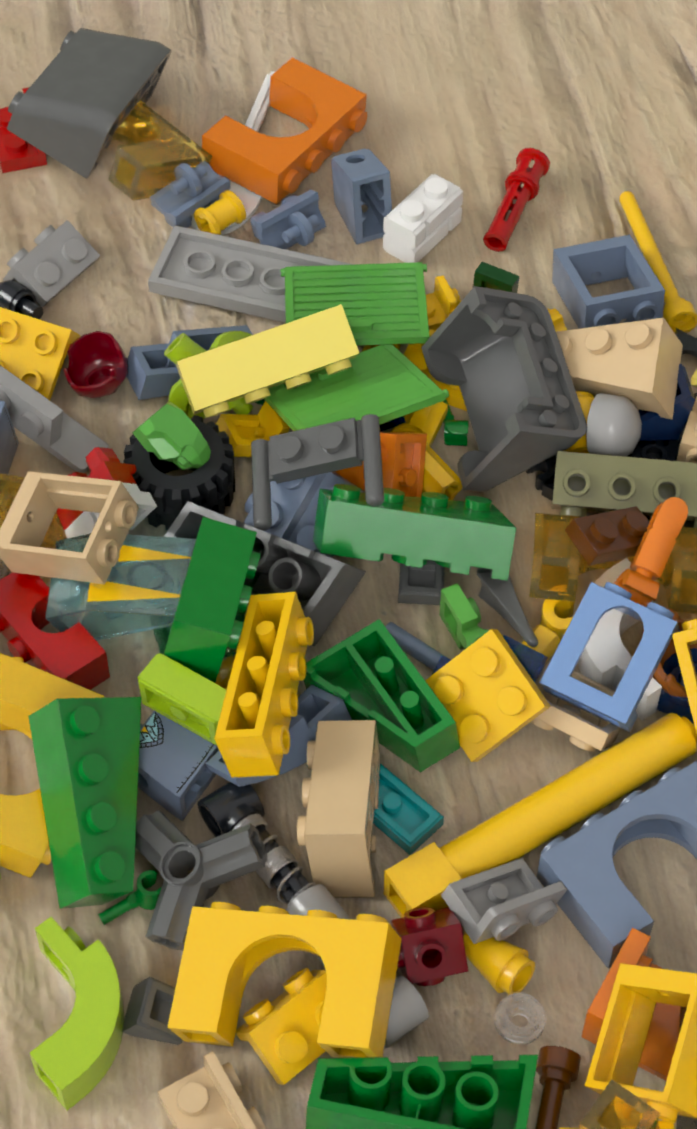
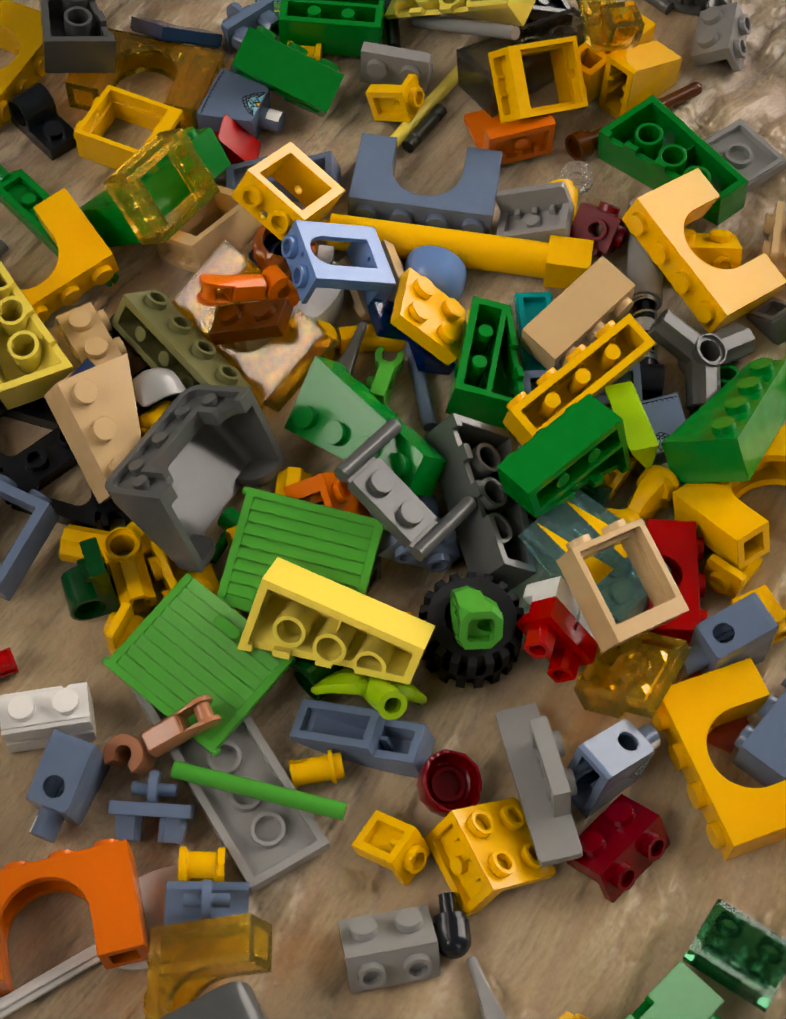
camera: 140 degrees left, 5 degrees up
(104, 310) = (393, 846): none -> yellow bracket
(126, 654) = (652, 494): none -> yellow animal
(207, 318) = (317, 769): none -> yellow pin
(226, 269) = (259, 790): none -> bright green bar
(332, 243) = (161, 737): none -> nougat piece
(526, 752) = (440, 267): none -> medium blue helmet

